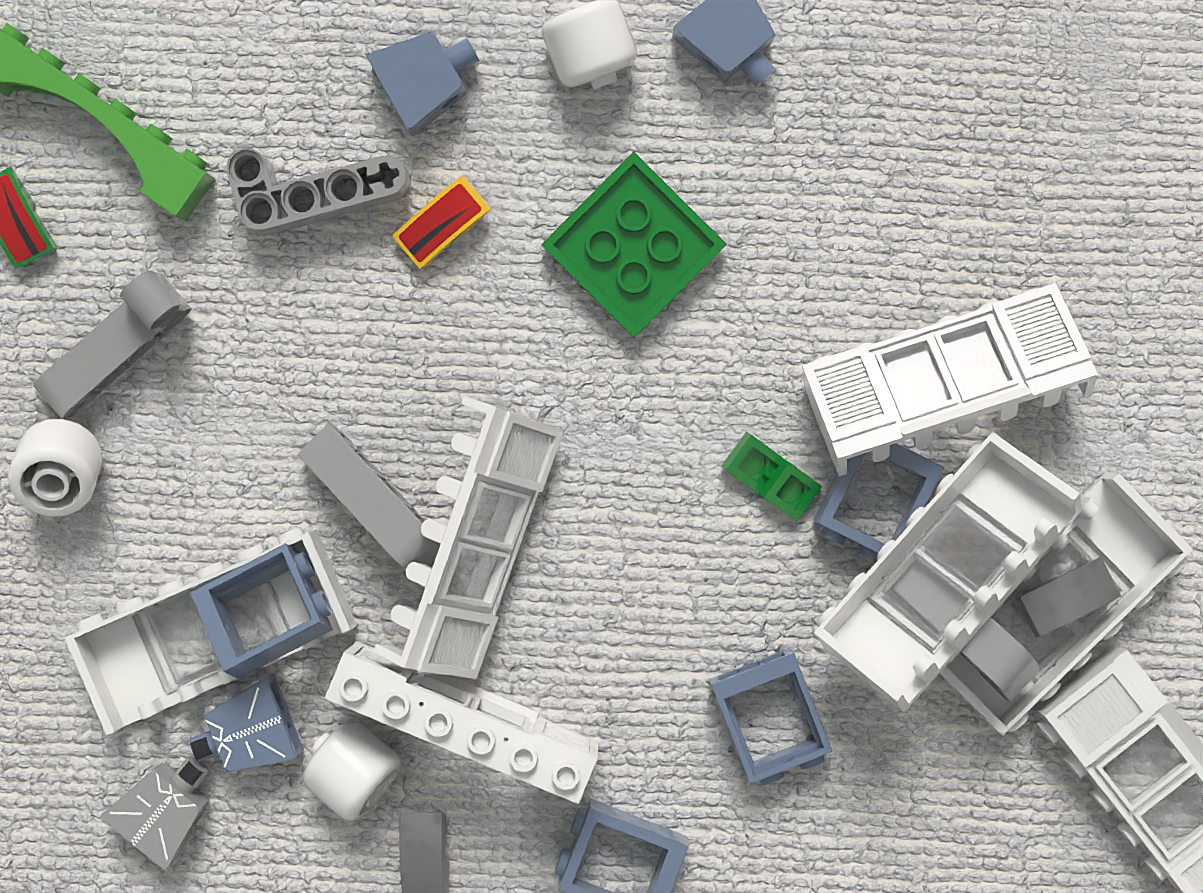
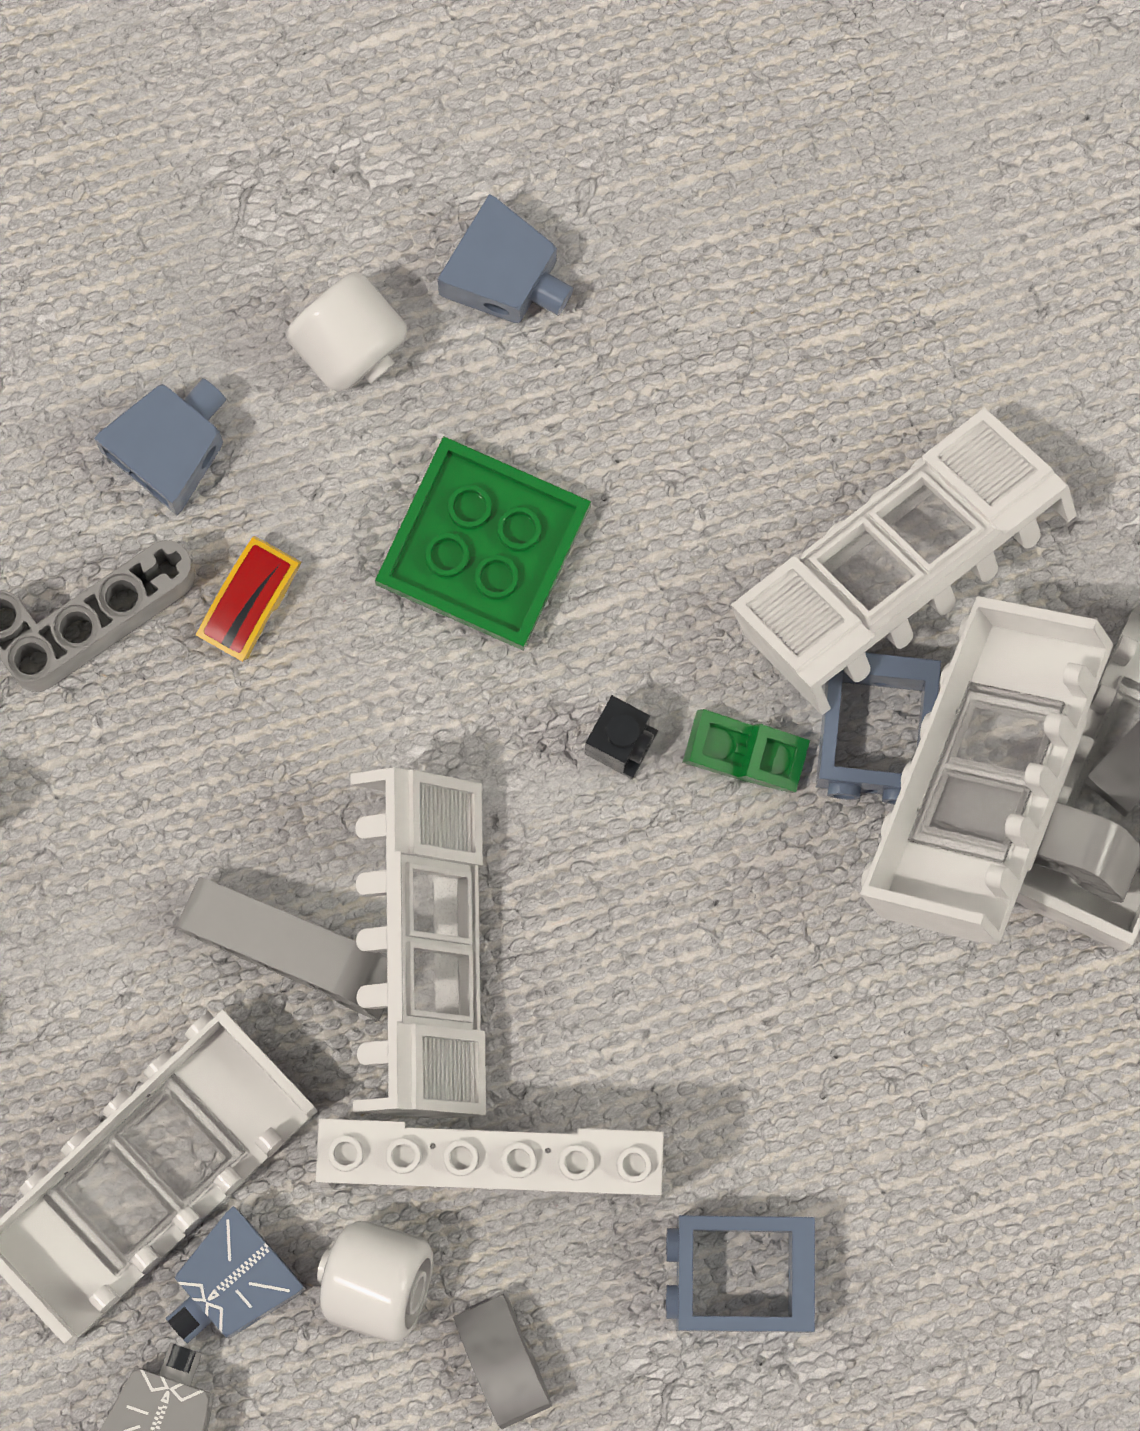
camera: 25 degrees left, 10 degrees down
(223, 635) = (172, 1088): sand blue window -> none
(682, 433) = (621, 737): none -> black brick
(805, 754) = (913, 1062): sand blue window -> none

